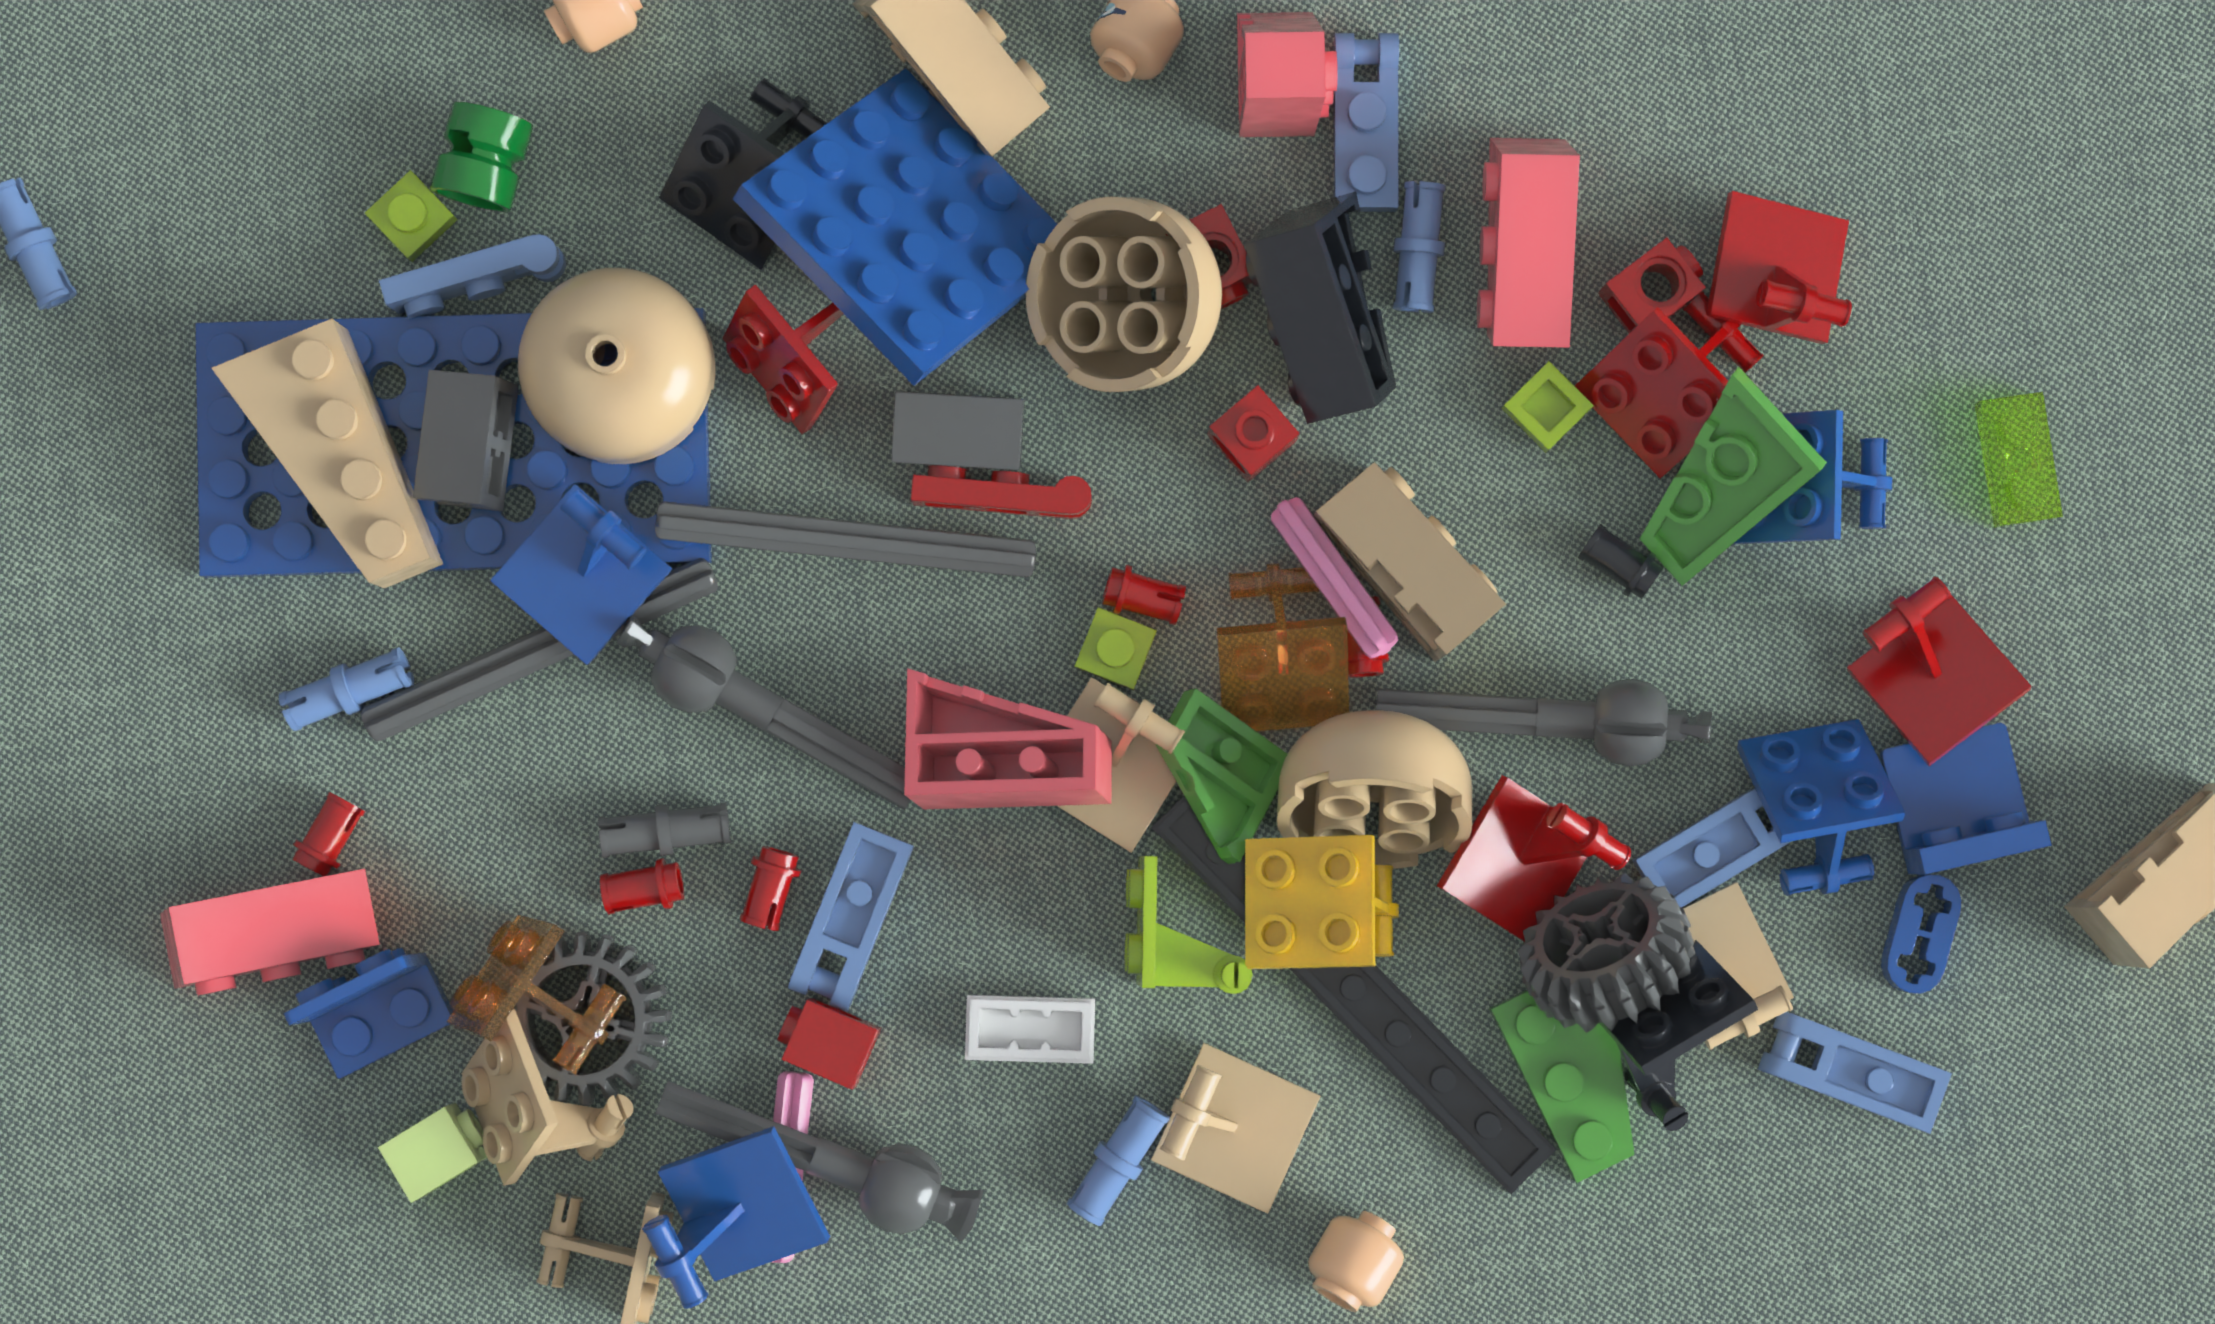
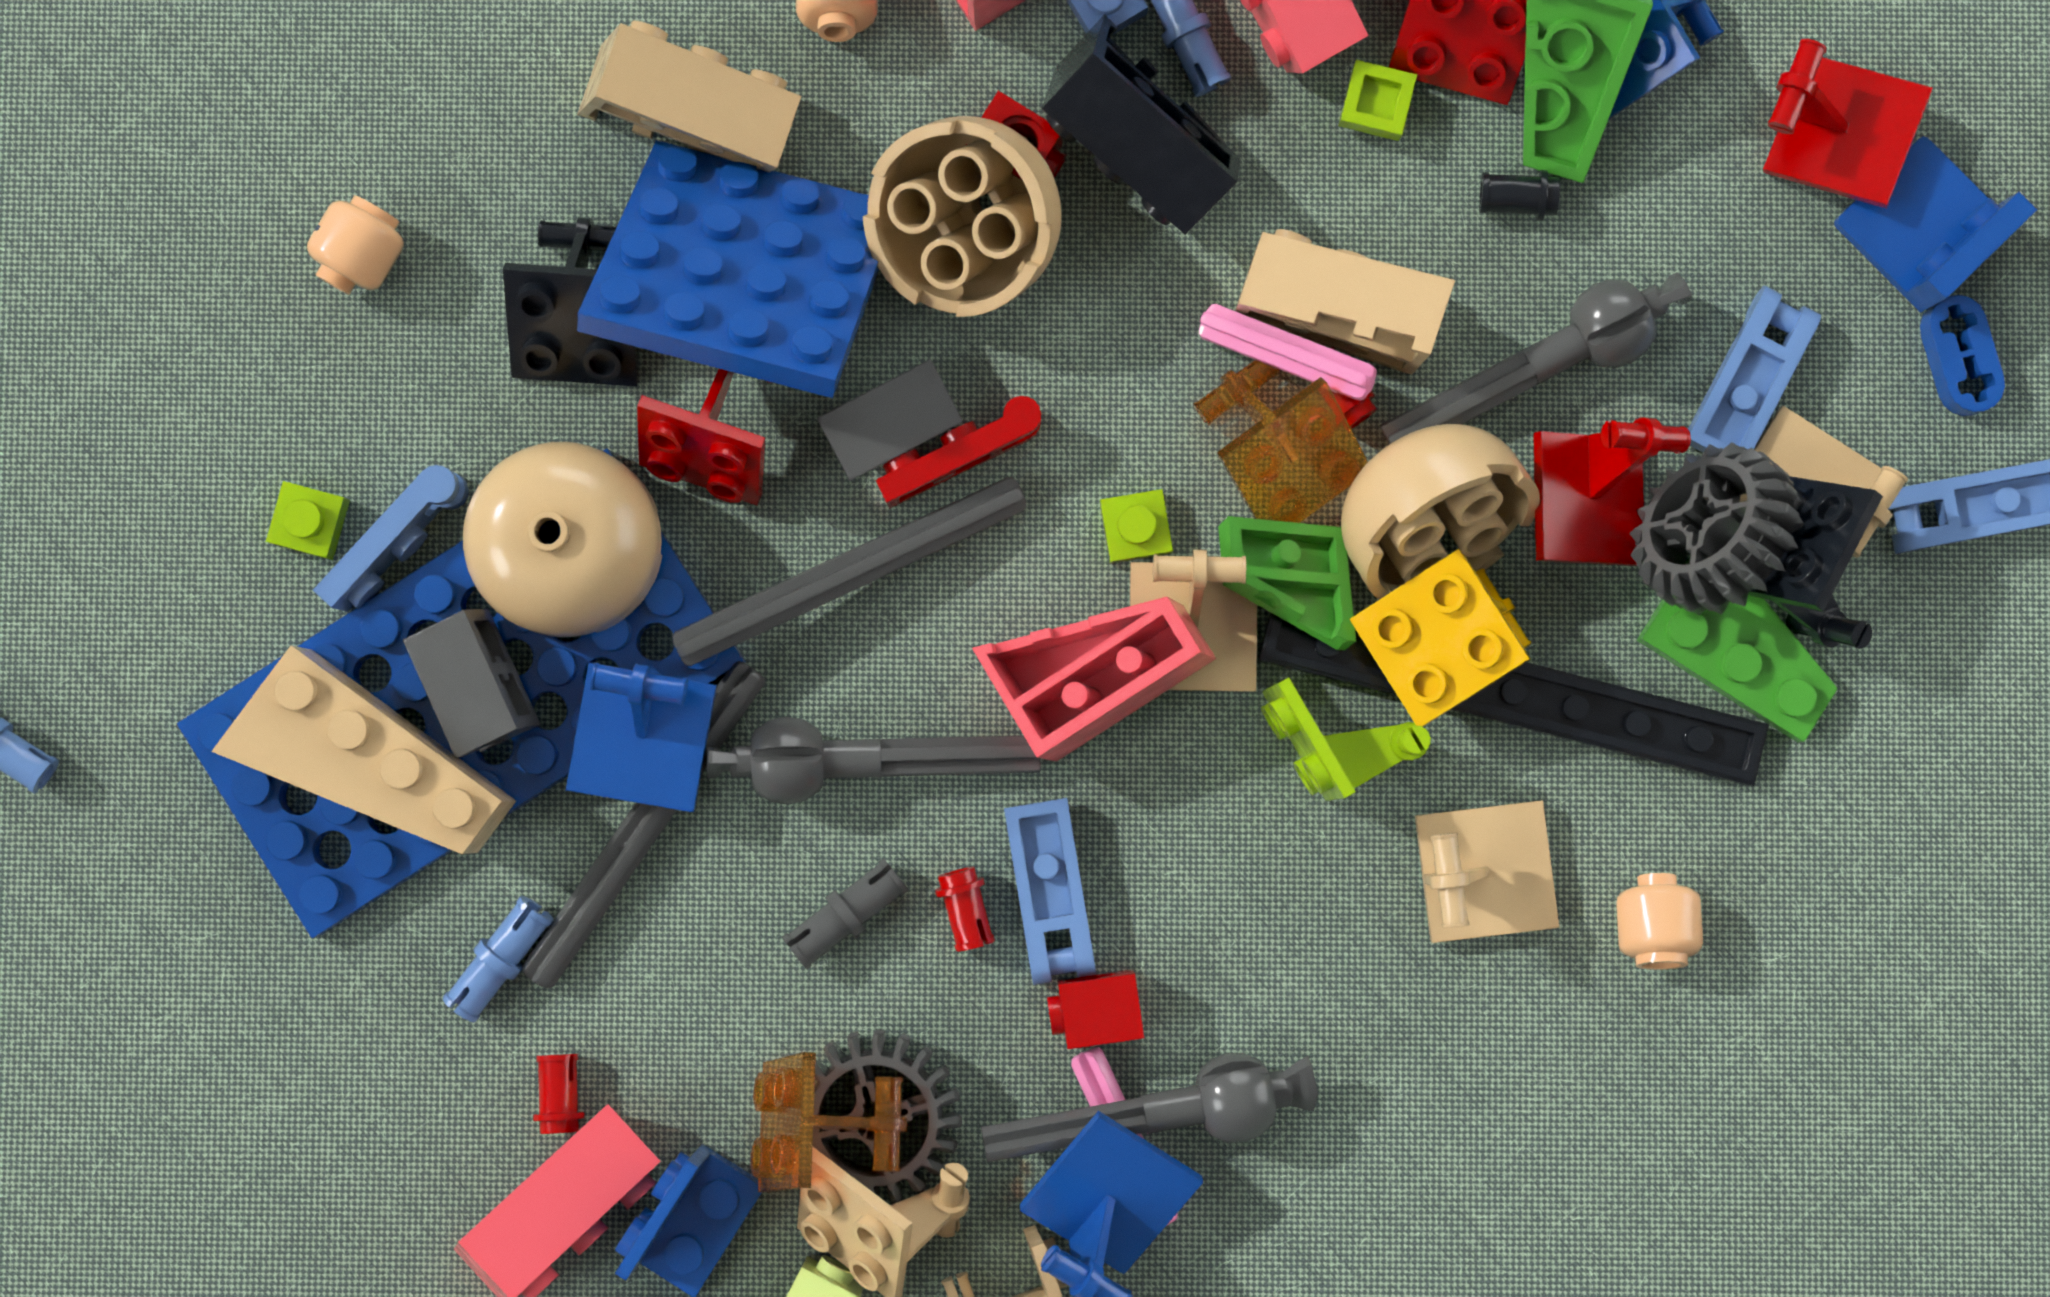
camera: 30 degrees left, 0 degrees up
(481, 157) = (337, 432): green wheel -> none
(642, 887) = (856, 974): red pin -> none
(1030, 1029) = (1261, 893): white plate -> none
(1118, 1160) = (1404, 960): medium blue pin -> none
(1143, 595) = (1132, 466): red pin -> none
(1253, 434) = (1143, 271): red brick -> none
(1821, 787) = (1808, 283): blue plate -> none

